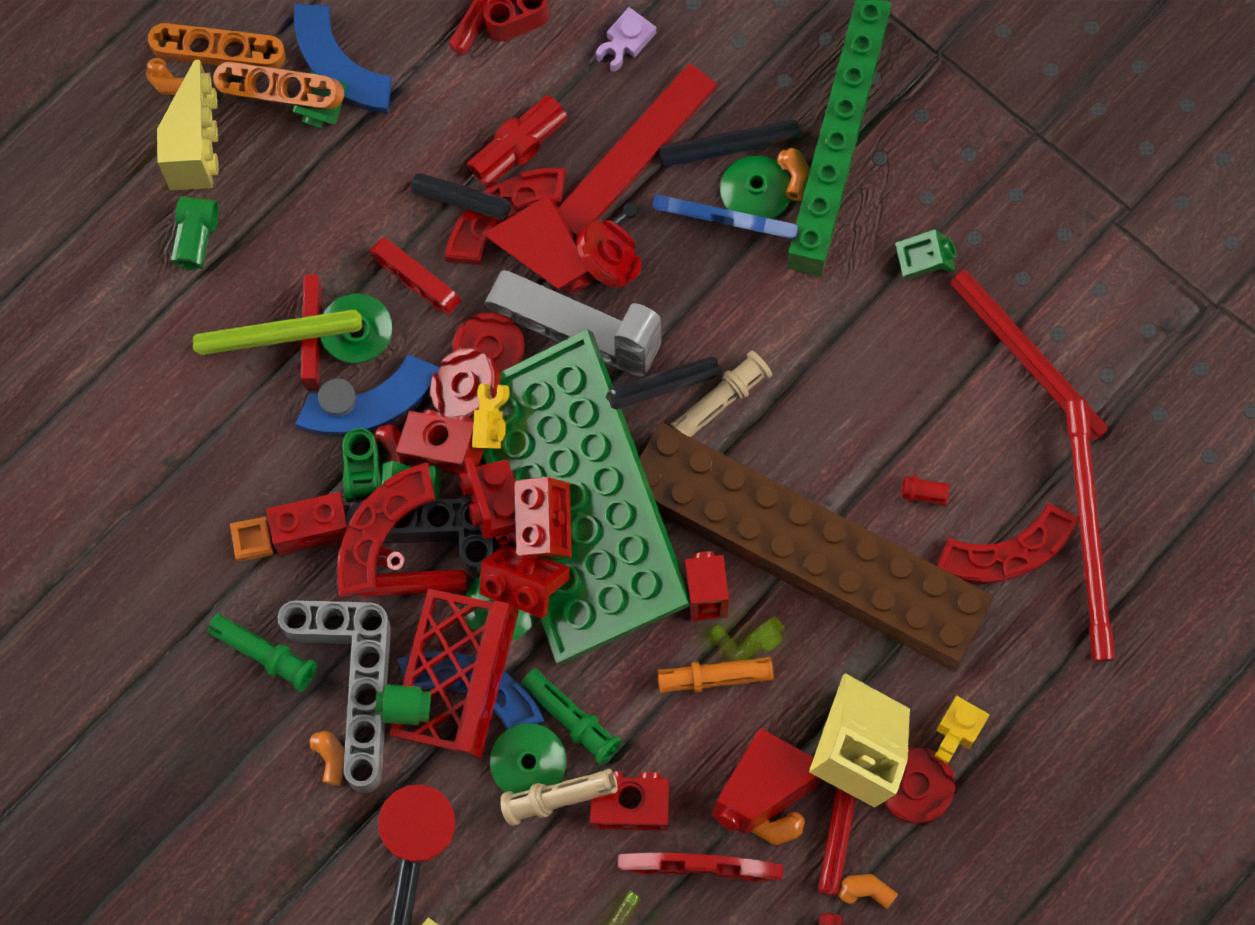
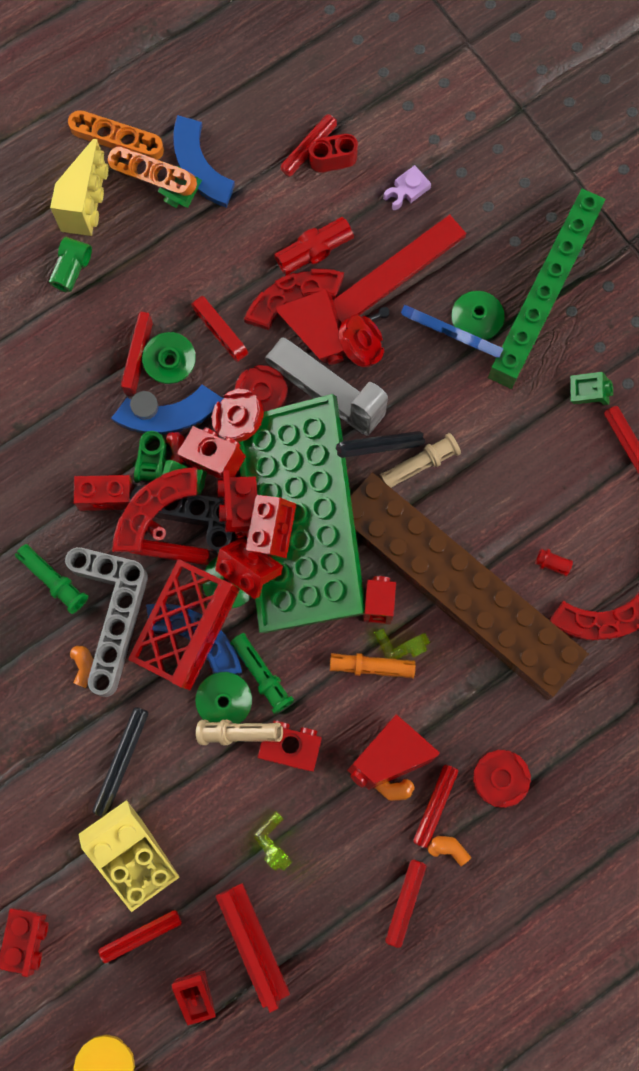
camera: 10 degrees right, 5 degrees up
(162, 78) = (71, 147): orange arm -> none
(251, 539) = (61, 495): orange tile -> none
(277, 332) = (111, 349): lime axle -> none
(403, 704) = (140, 641): green brick -> none
(417, 823) = (132, 730): red tile -> none
(461, 196) = (265, 277): black axle -> none
(488, 421) = (247, 445): yellow plate -> none
(682, 863) = (331, 807): red tile -> none
(729, 143) = (466, 278): black axle -> none
(796, 164) = (510, 302): orange arm -> none
(863, 743) = (470, 742): light yellow slope -> none
(960, 726) = (543, 743): yellow plate -> none

